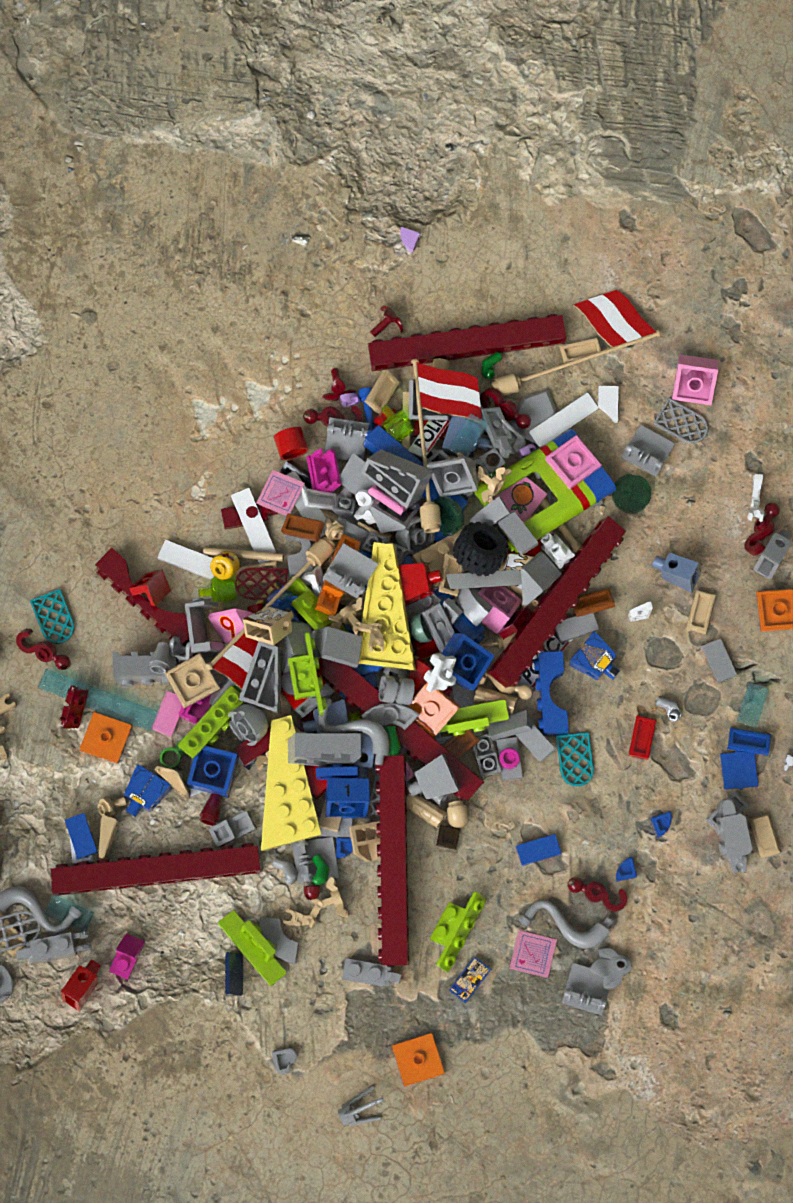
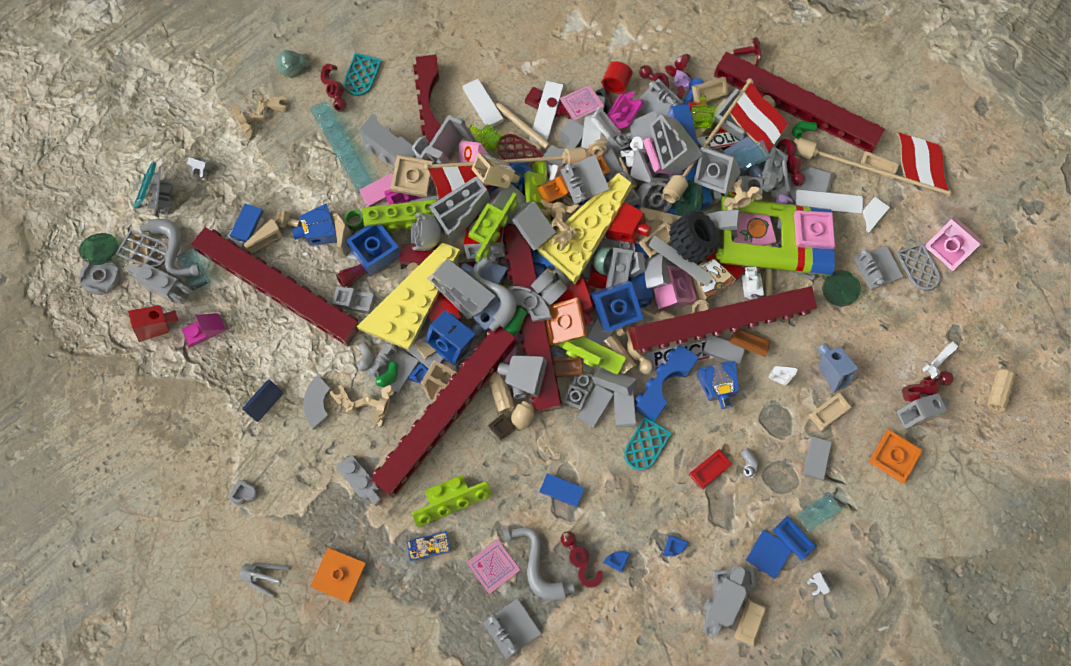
camera: 35 degrees right, 5 degrees down
(73, 713) = (319, 137): dark red hinge -> none
(105, 738) = (324, 174): orange plate -> none
(154, 585) = (441, 99): red panel -> none
(160, 660) = (402, 143): light grey cone -> none
(224, 565) = (502, 120): yellow head -> none
(253, 946) = (292, 393): lime bracket -> none
(302, 527) = (577, 132): dark orange tile -> none
(311, 891) = (369, 387): dark red hinge -> none
(336, 770) = (458, 311): blue plate -> none
(409, 238) = (810, 11): lavender tile -> none
(441, 675) = (588, 298): white hips -> none
(509, 758) = (594, 404): dark pink tile -> none
(515, 622) = (678, 309): dark red tile -> none
(518, 533) = (732, 246): light grey tile -> none
(537, 576) = (721, 289): light grey slope -> none
(608, 968) = (540, 625): light grey plate -> none

